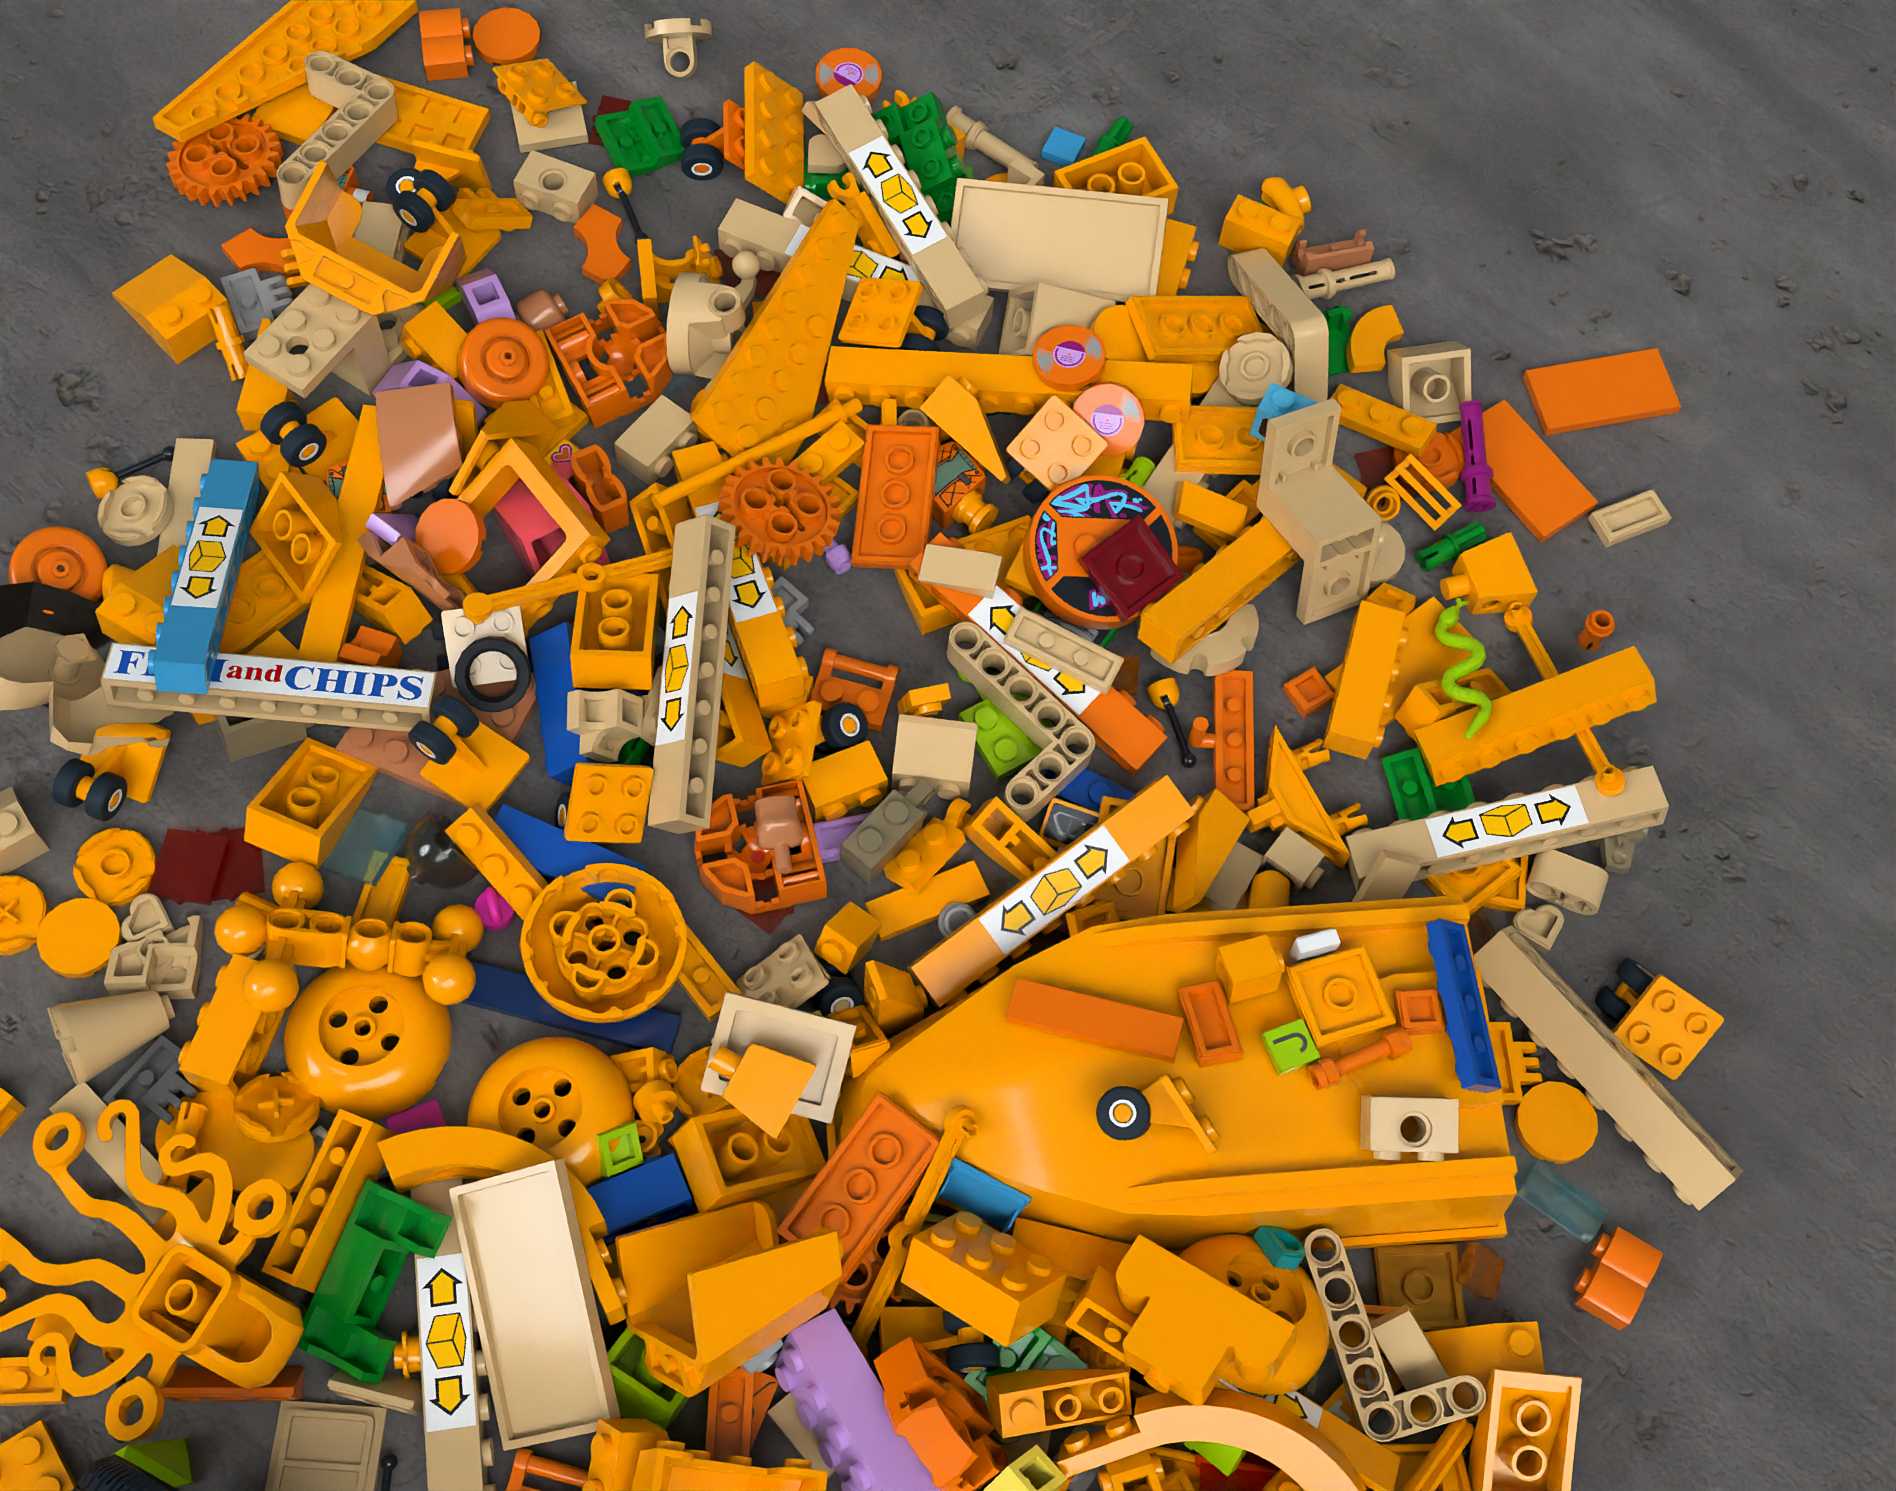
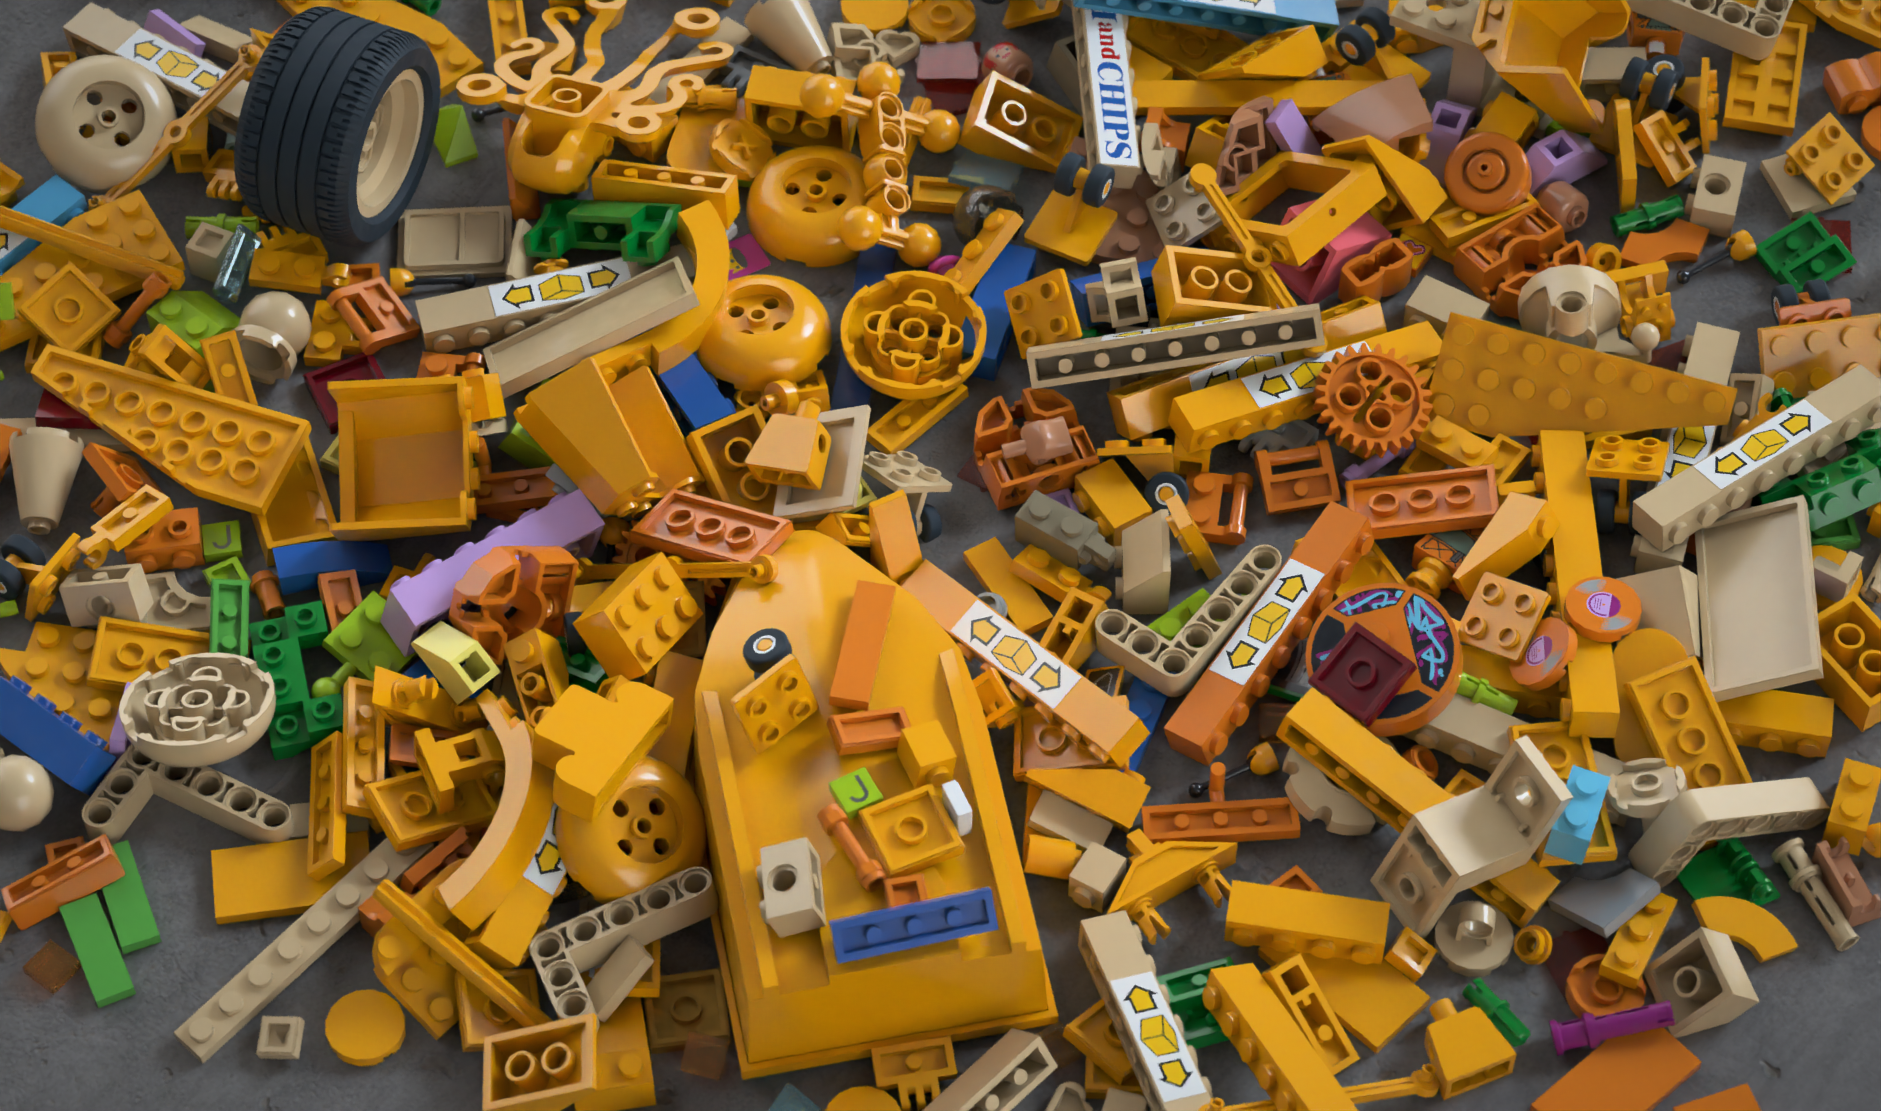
camera: 90 degrees right, 10 degrees down
(220, 802) = (1010, 62): none -> nougat head
(405, 657) = (1160, 161): none -> tan slope
(452, 535) = (1284, 161): orange tile -> none
(478, 700) = (1143, 198): black tyre -> none
(504, 241) = (1624, 154): none -> light orange tile
(565, 250) = (1647, 216): none -> green pin
(627, 1153) = (732, 382): lime tile -> none
(692, 484) = (1505, 445): light orange bar -> none
(847, 937) = (954, 519): light orange brick -> none
(849, 605) = (1299, 488): none -> orange plate
(960, 570) = (1329, 539): tan slope -> none
(982, 1195) = (722, 592): dark azure piece -> none
(1063, 650) = (1267, 639): tan tile -> none
(1209, 511) = (1467, 758): light orange tile -> none
(1280, 1247) = (690, 848): teal tile -> none
(1357, 434) = (1604, 903): none -> light grey tile
(1388, 877) = (1074, 944): tan tile -> none
(1401, 470) = (1549, 979): light orange tile -> none
(1446, 620) = (1398, 1002): lime animal -> none

